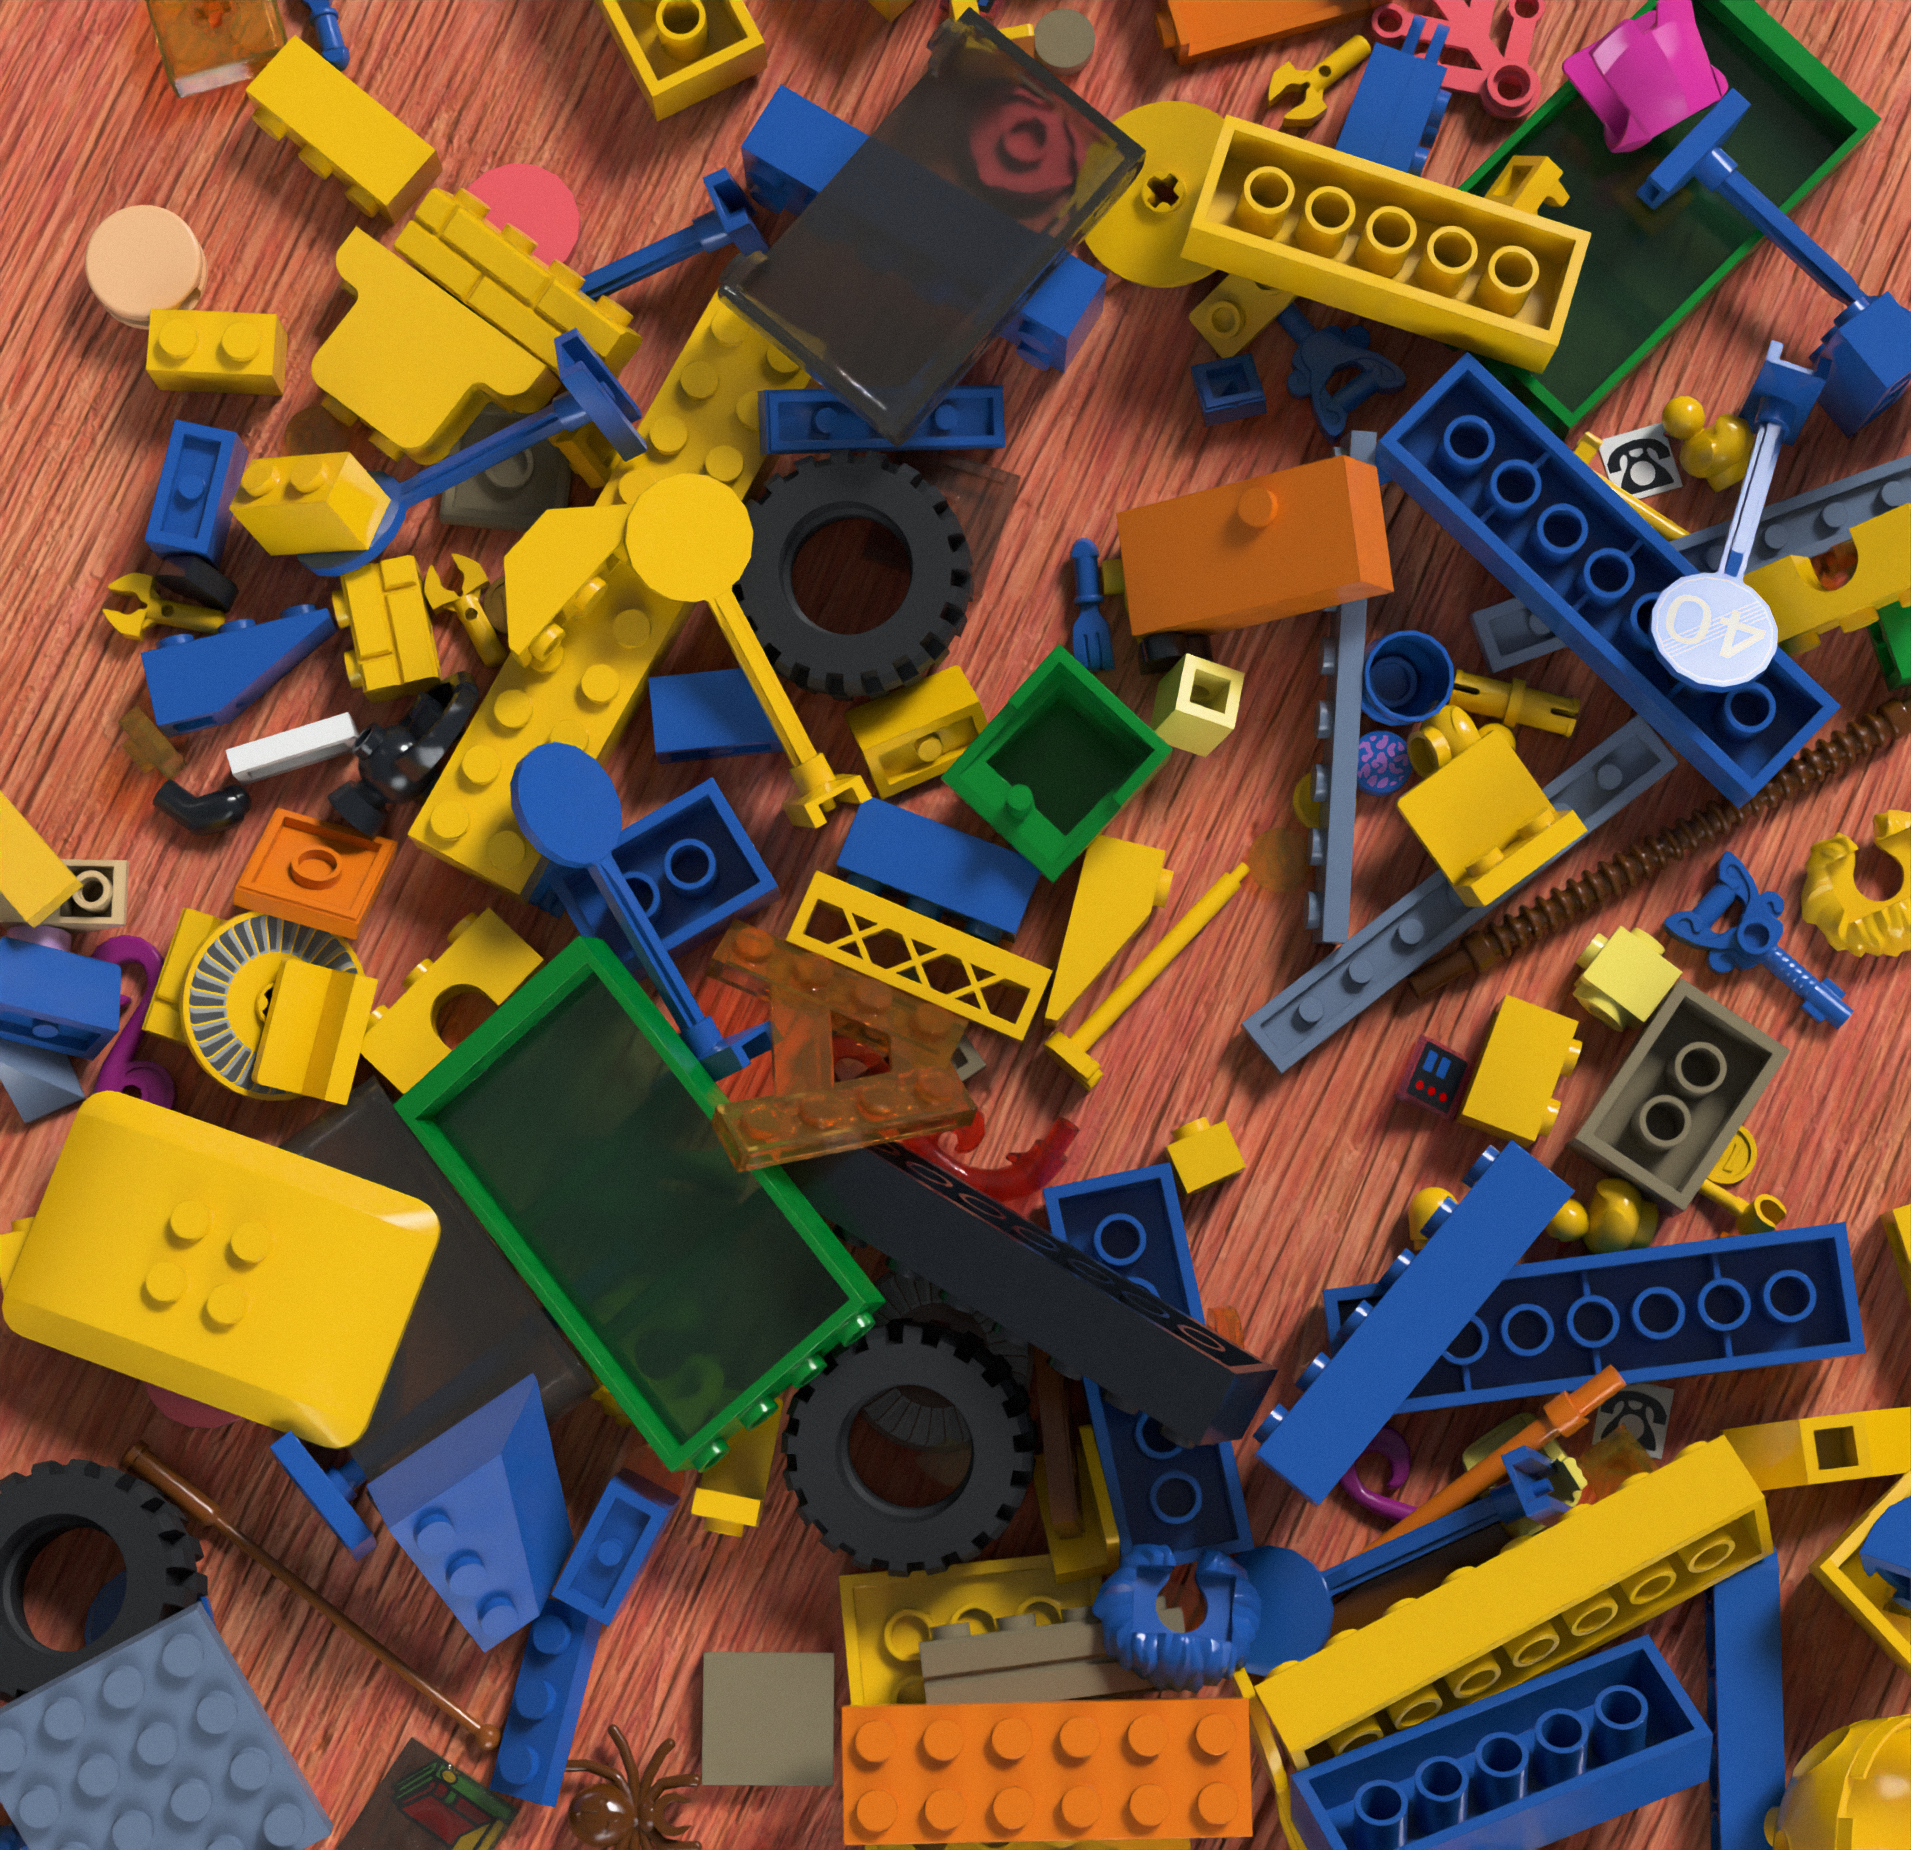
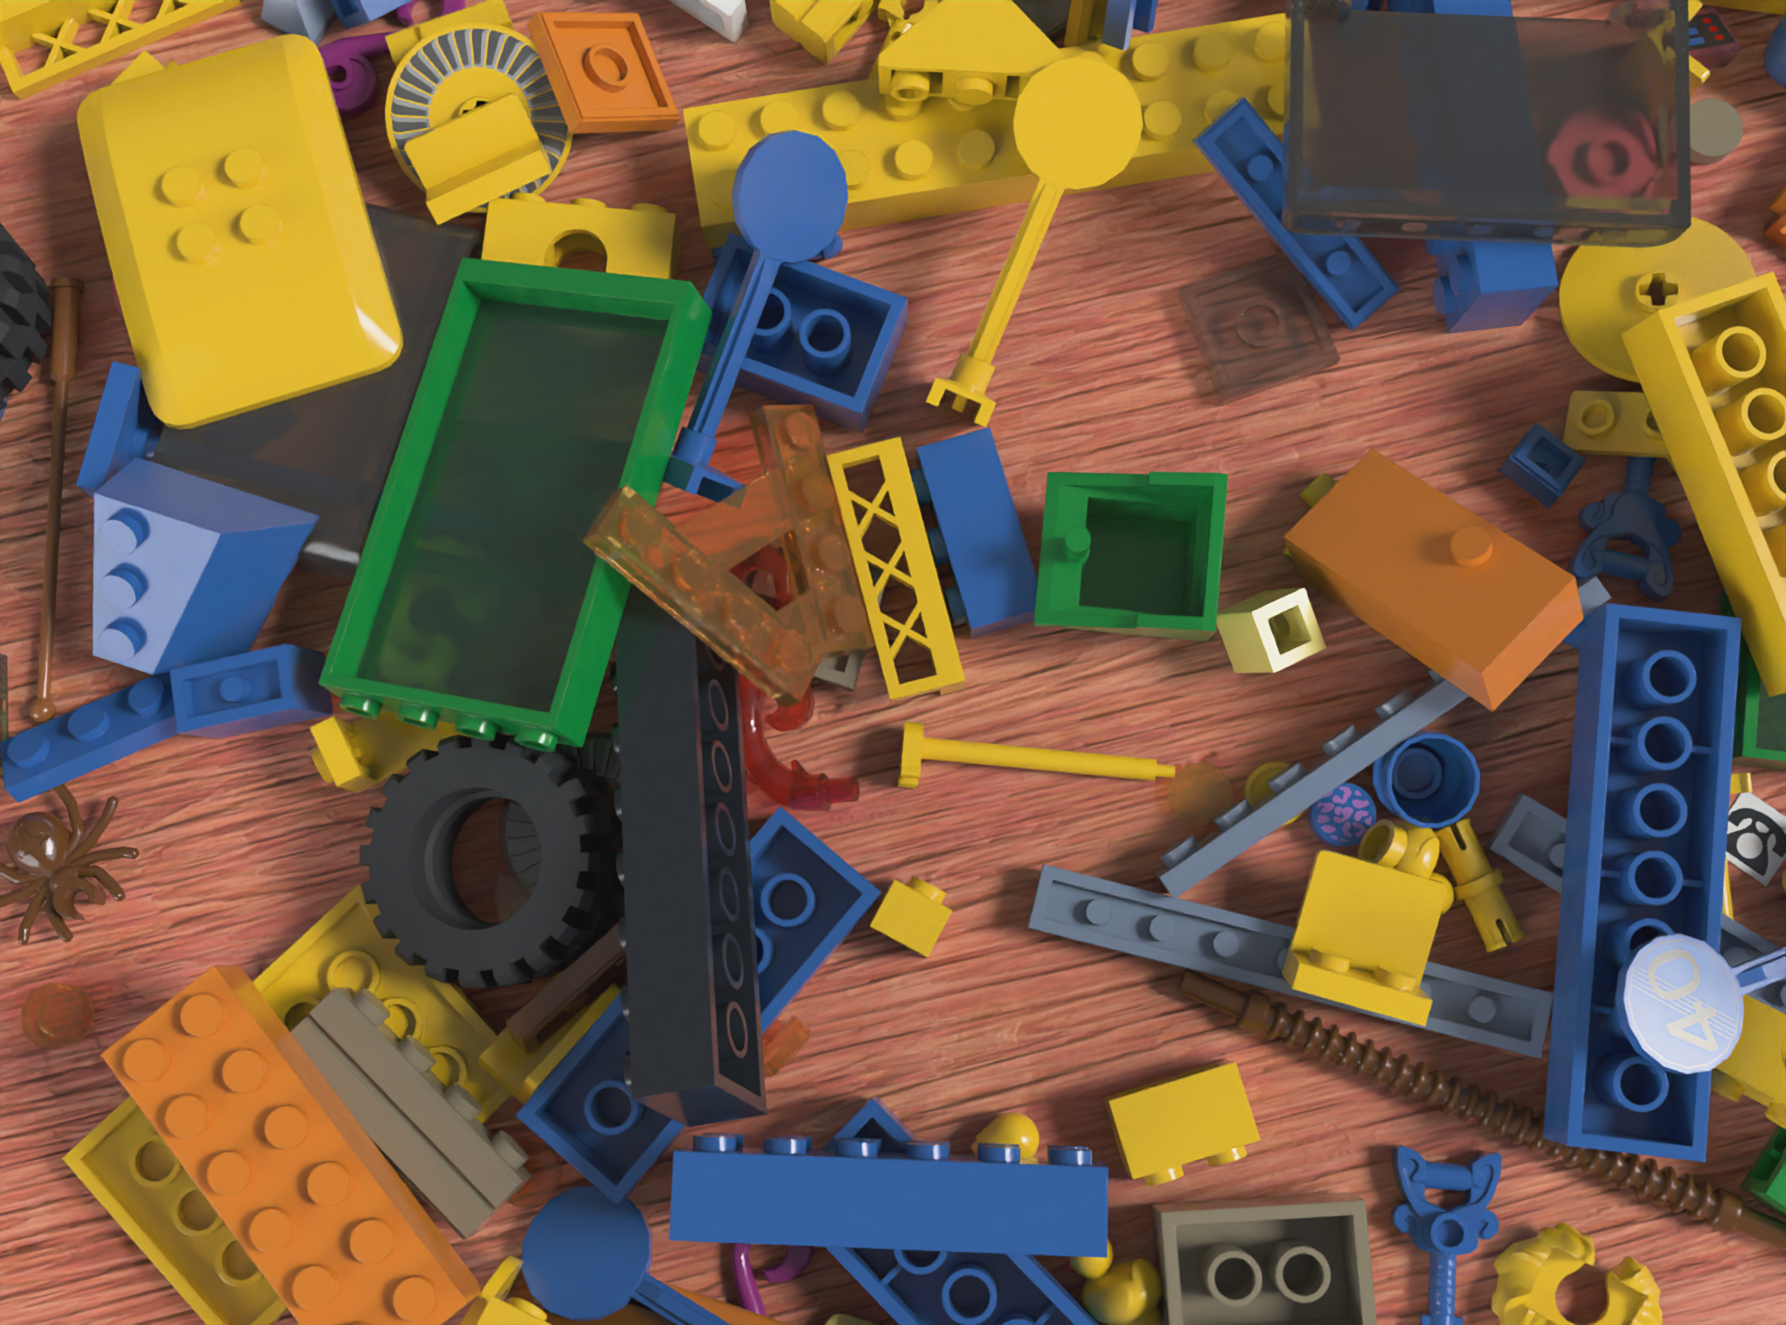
camera: 55 degrees right, 0 degrees up
(402, 759) = (741, 65): black piece -> none
(708, 717) = (956, 266): blue panel -> none
(768, 1718) = (211, 910): dark tan tile -> none
(917, 730) = (1073, 431): yellow panel -> none
(937, 589) = (1163, 206): black tyre -> none
(1091, 630) = (1263, 507): blue piece -> none
(1108, 912) = (1048, 690): yellow slope -> none
(1163, 650) = (1293, 570): black tile -> none
(1168, 1657) = (466, 1197): blue piece -> none
(1434, 1078) = (1122, 1055): slope -> none
(1623, 978) = (1327, 1149): light yellow brick -> none

